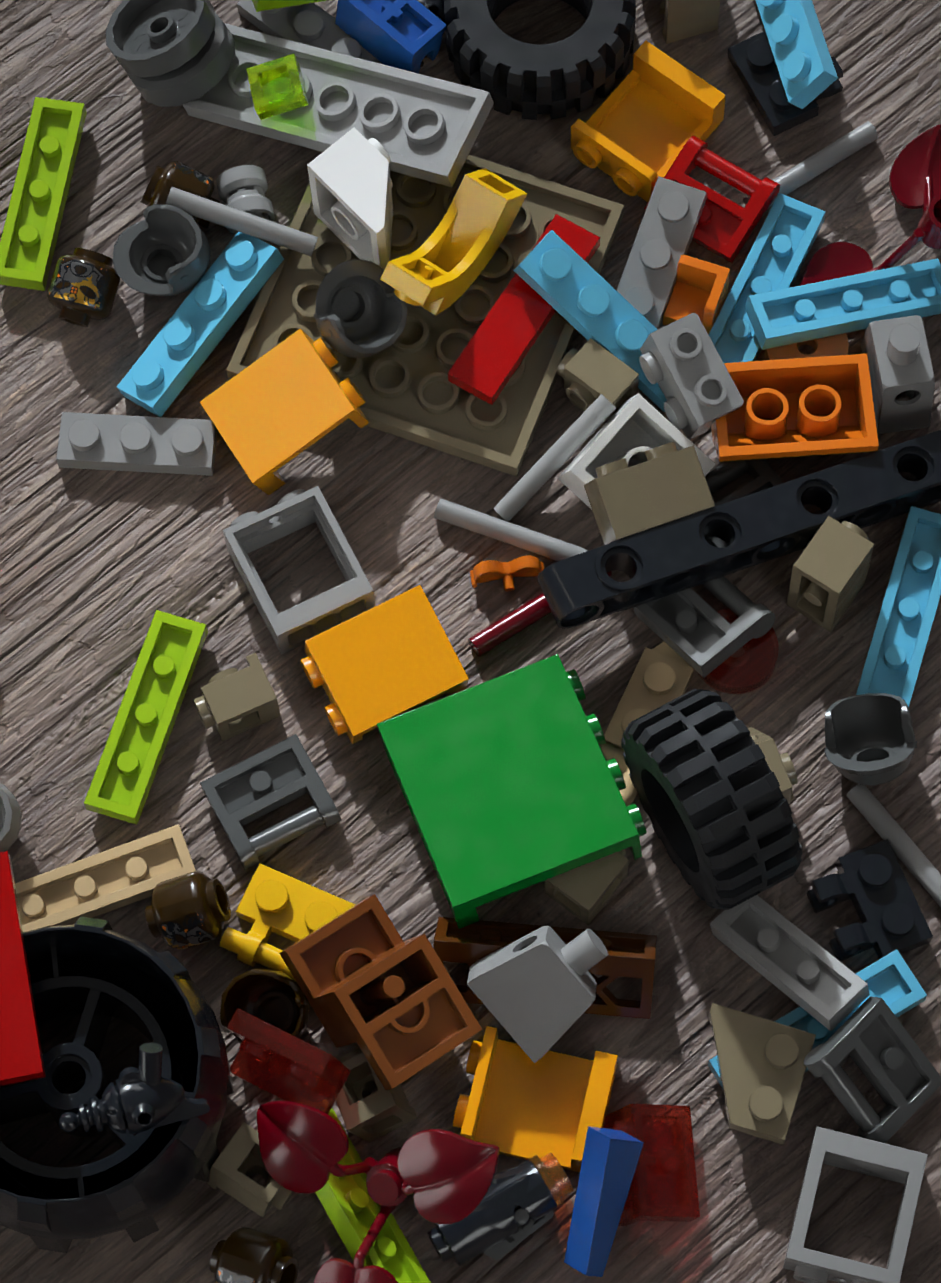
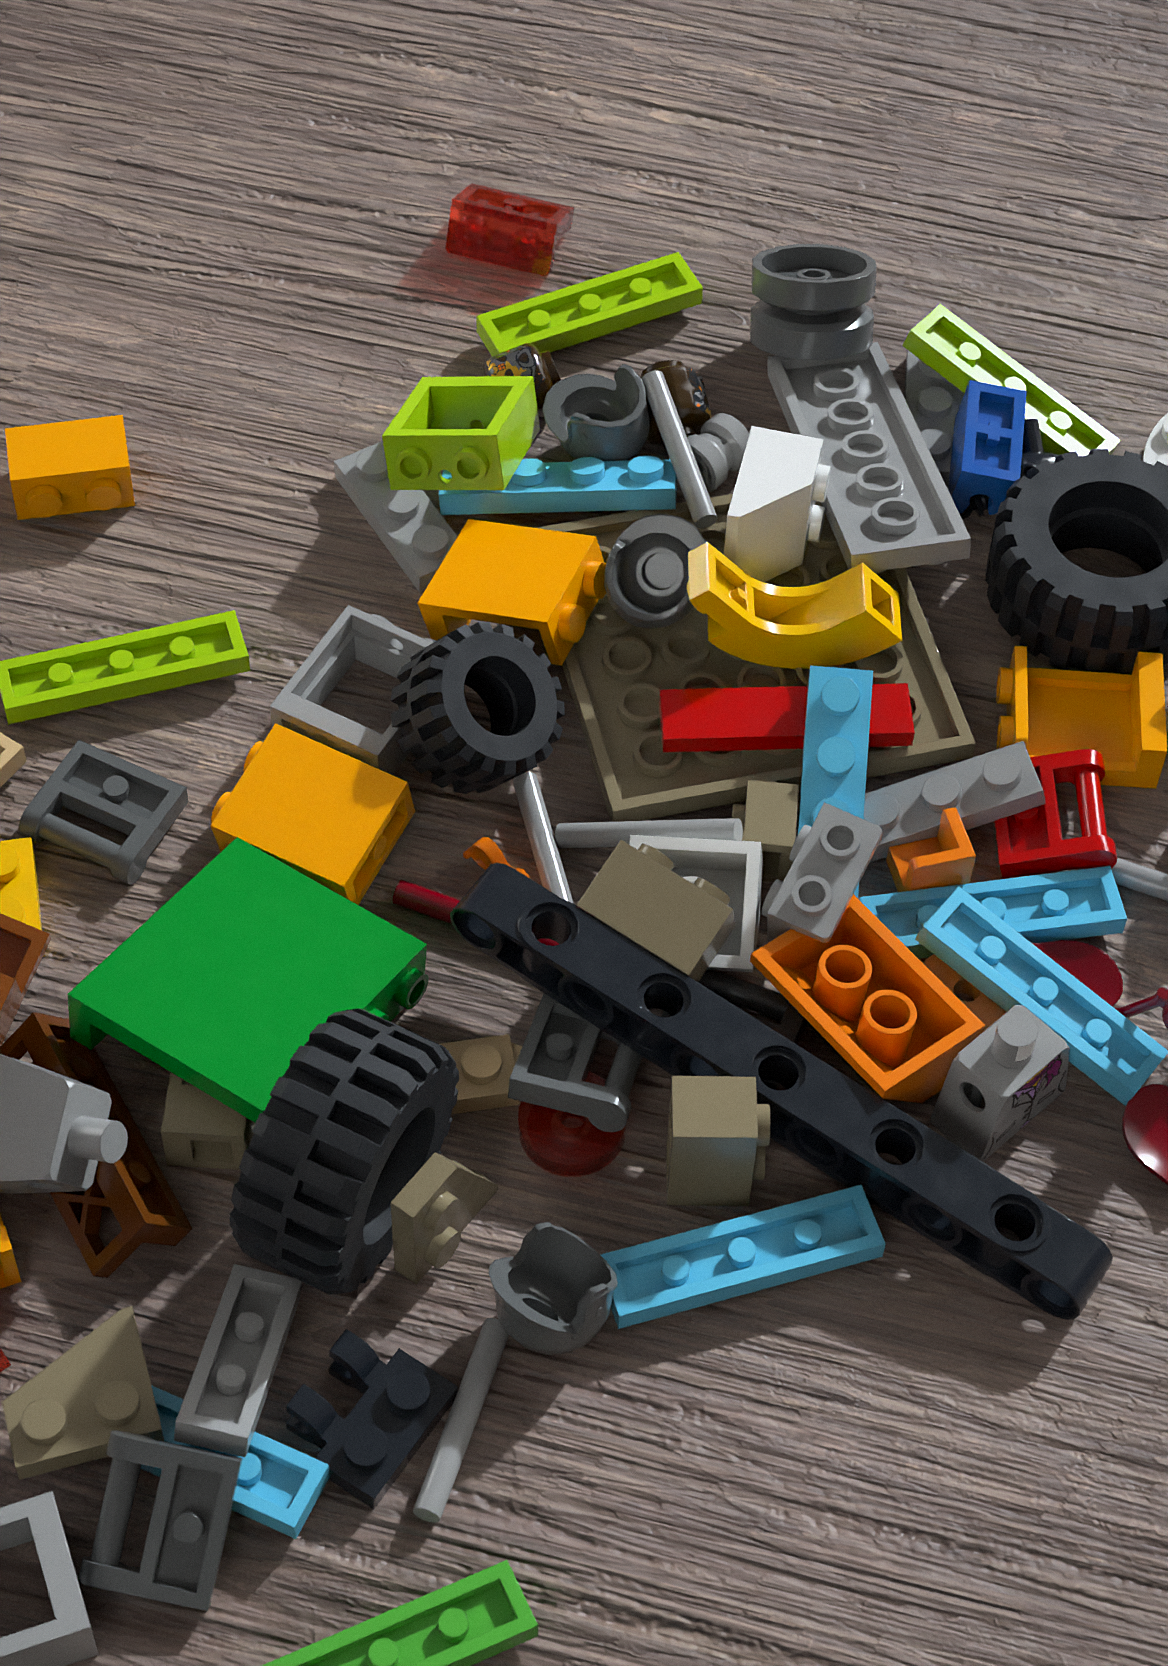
camera: 50 degrees right, 15 degrees down
(92, 330) = (442, 432): none -> lime window
(237, 700) = (192, 726): dark tan brick -> none
(277, 86) = (834, 393): clear neon green plate -> none
(384, 500) = (511, 684): none -> black tyre

